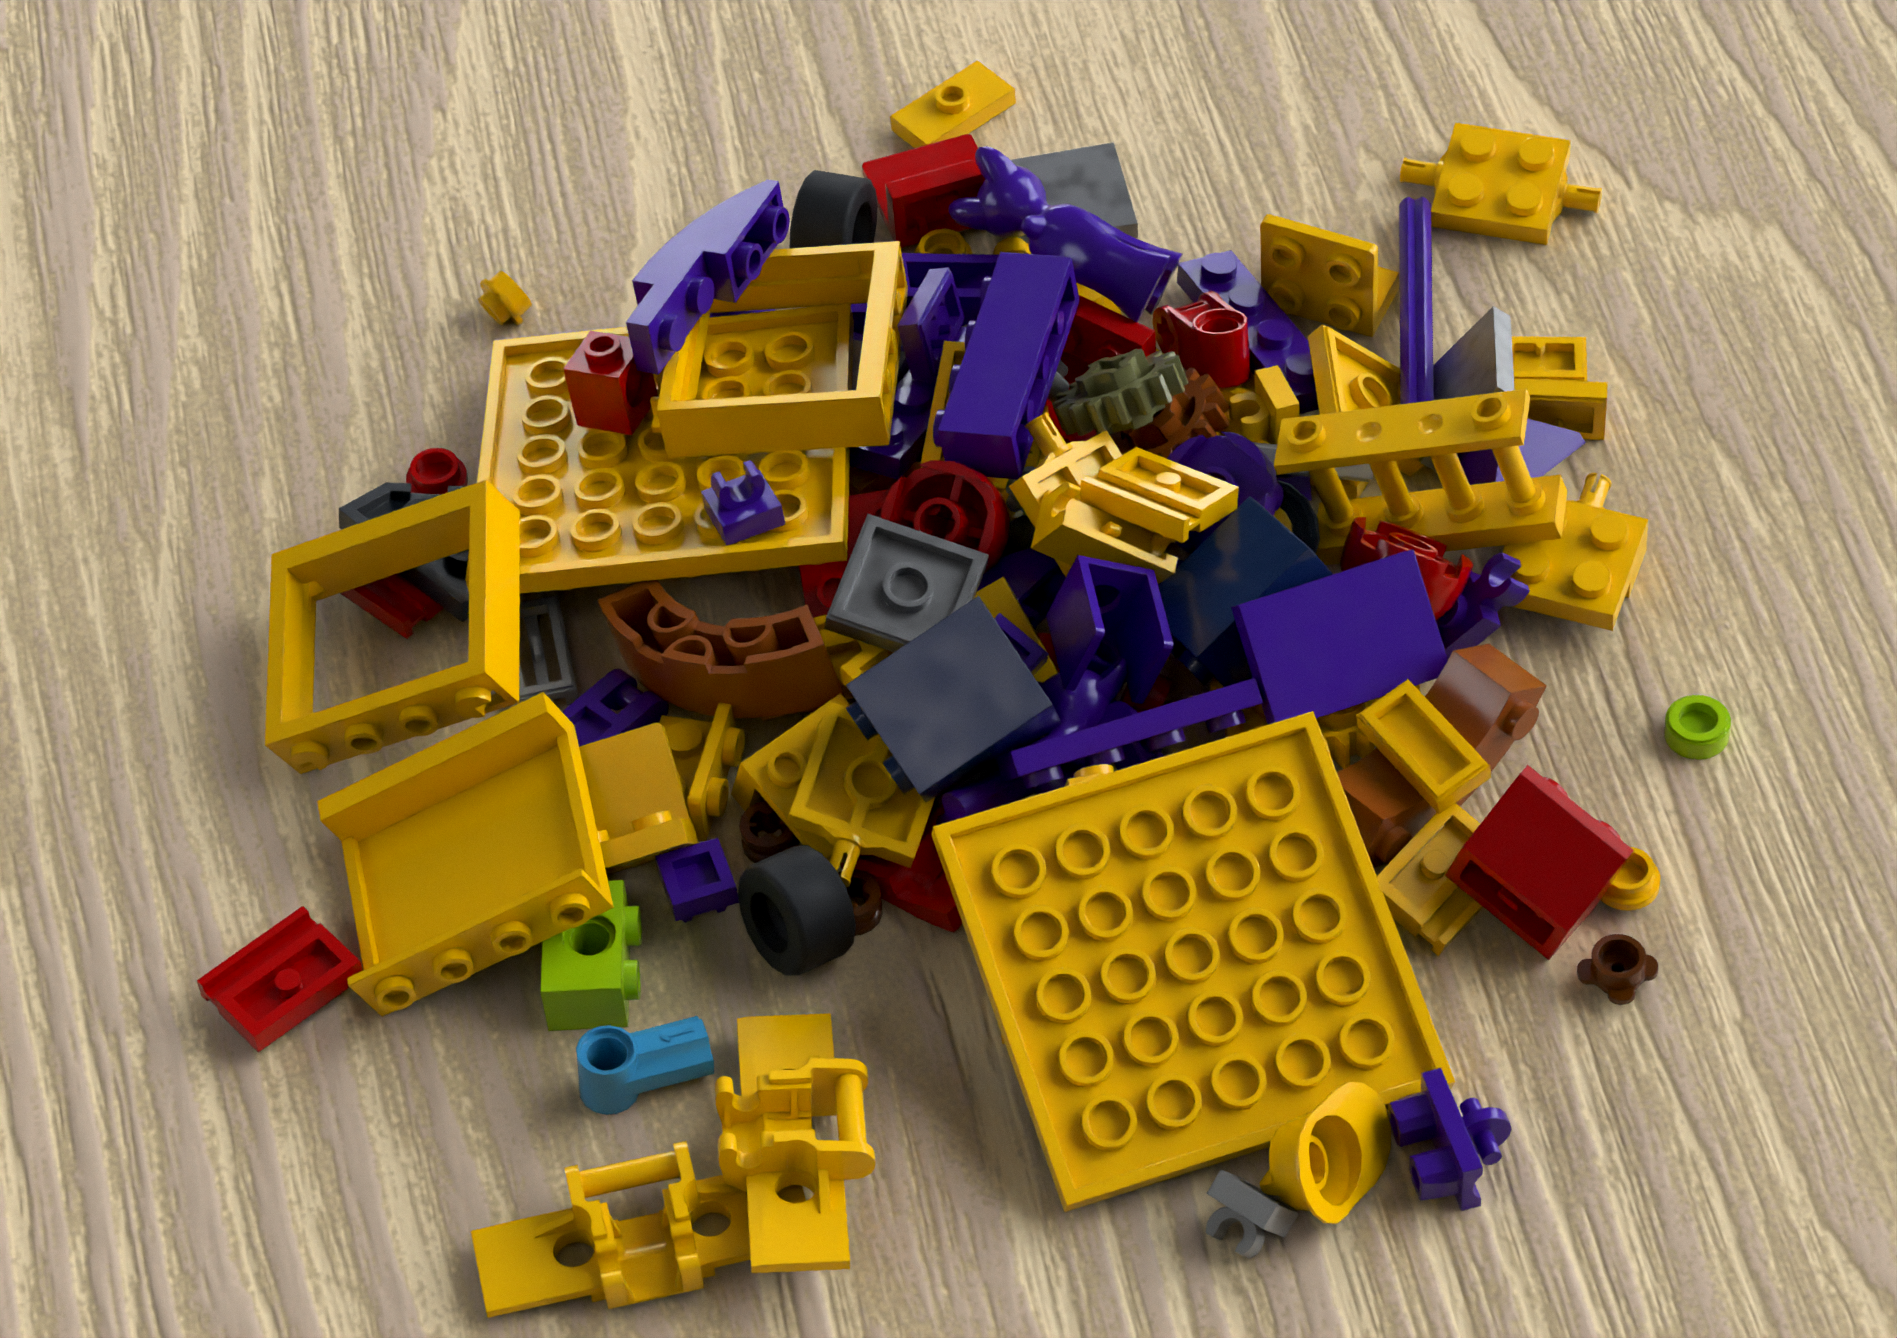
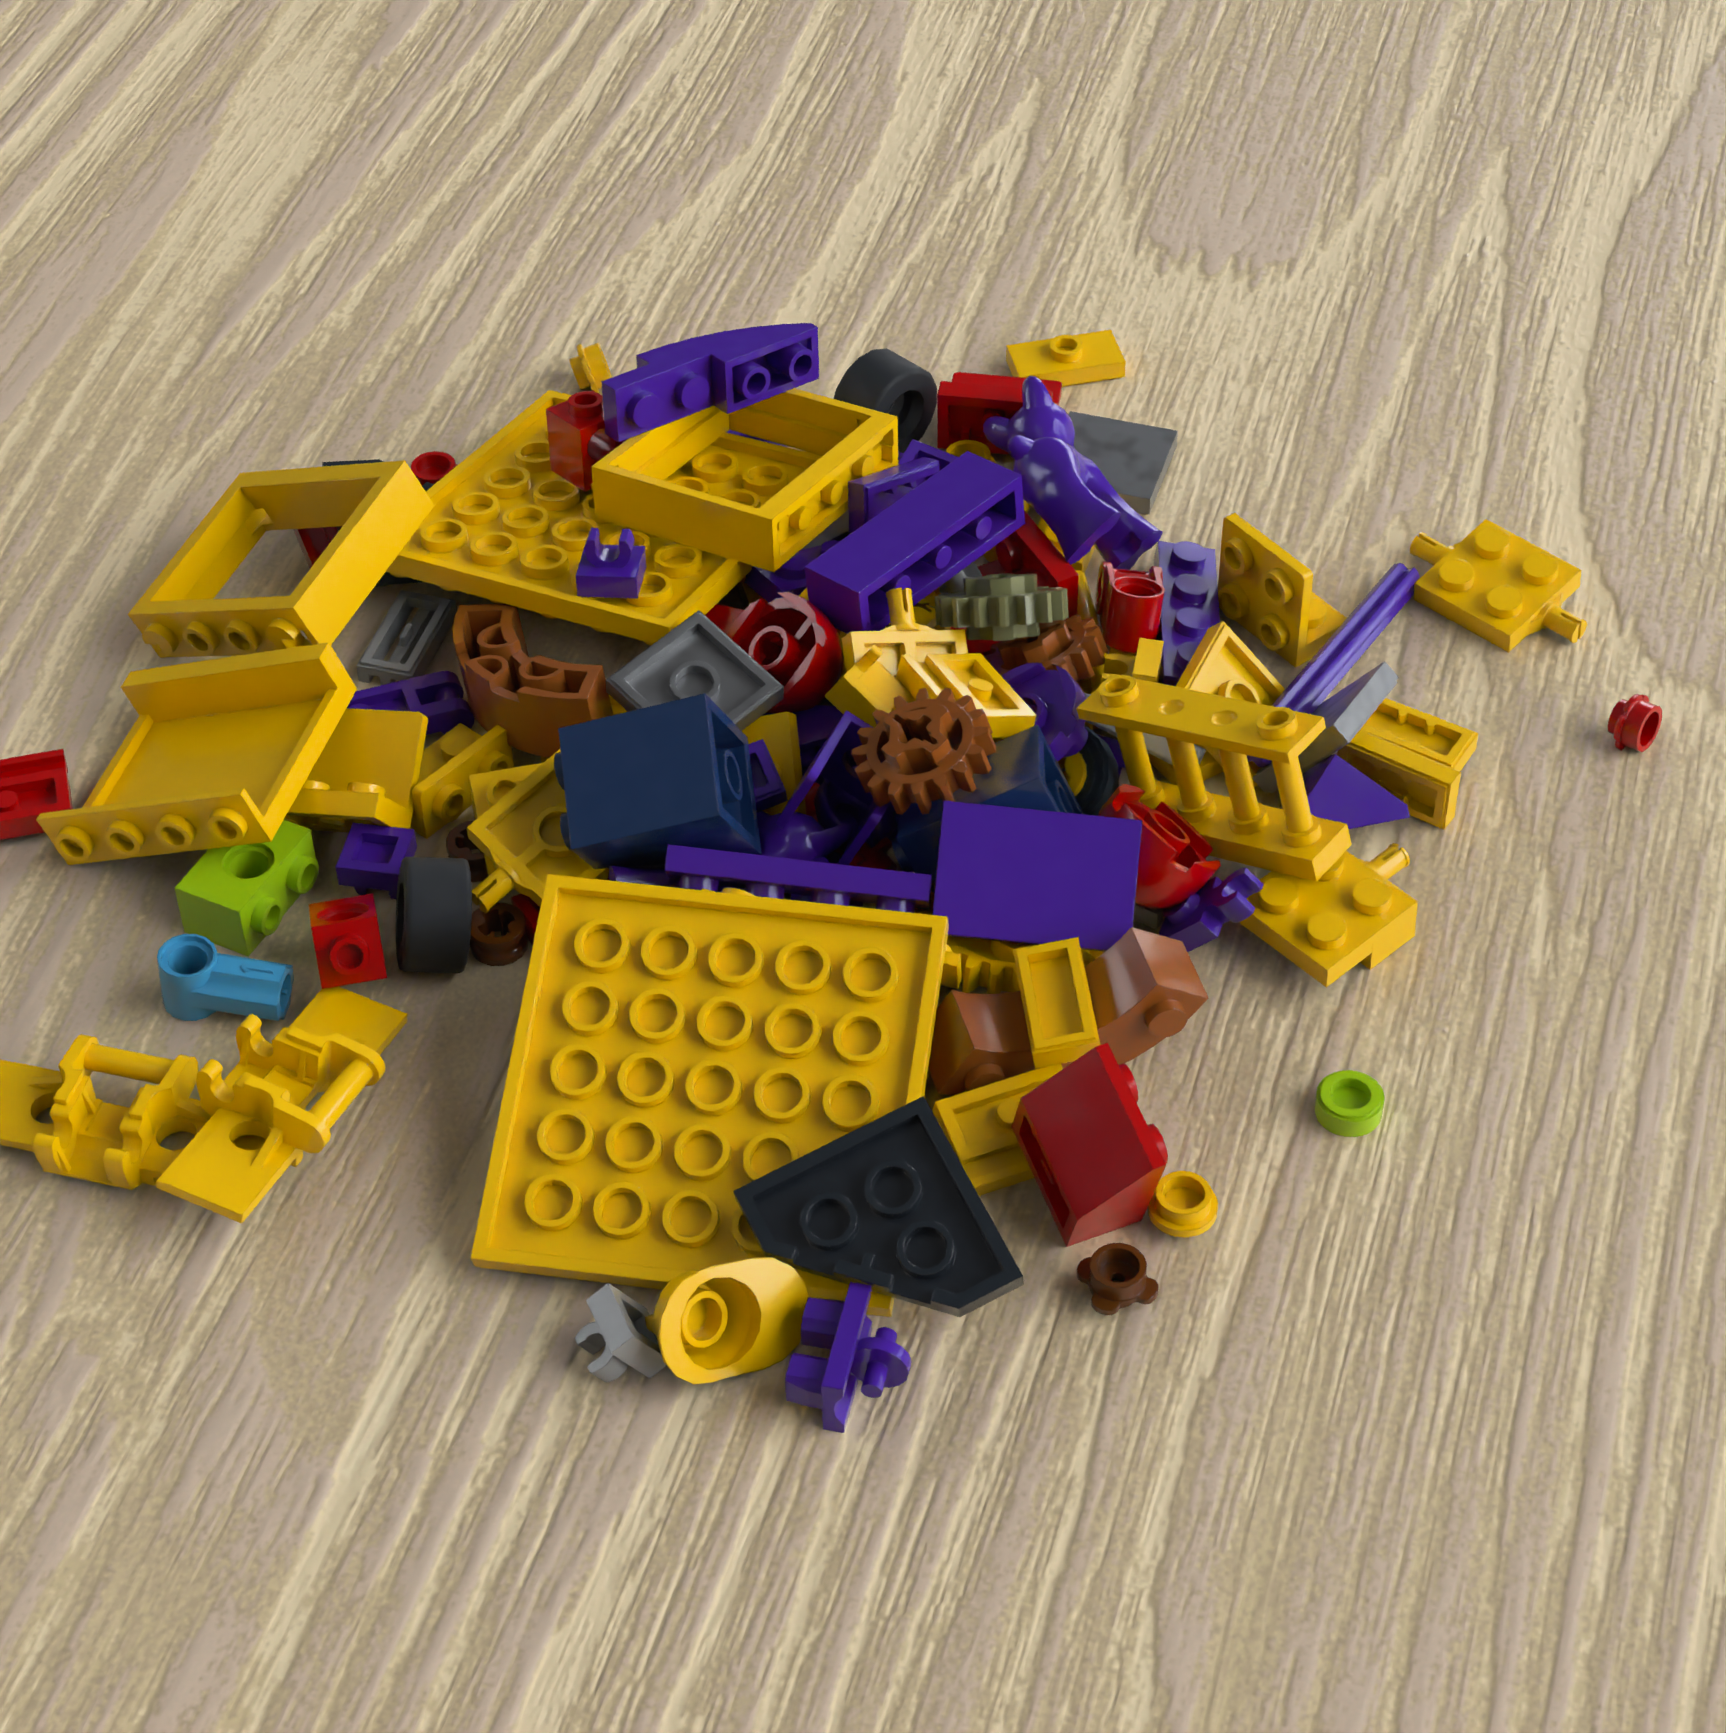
camera: 25 degrees right, 5 degrees down
(735, 970) = (347, 941): none -> red brick
(1180, 564) = (924, 750): none -> dark orange gear
(1417, 1000) = (886, 1214): none -> black plate
(1705, 270) = (1635, 723): none -> red plate

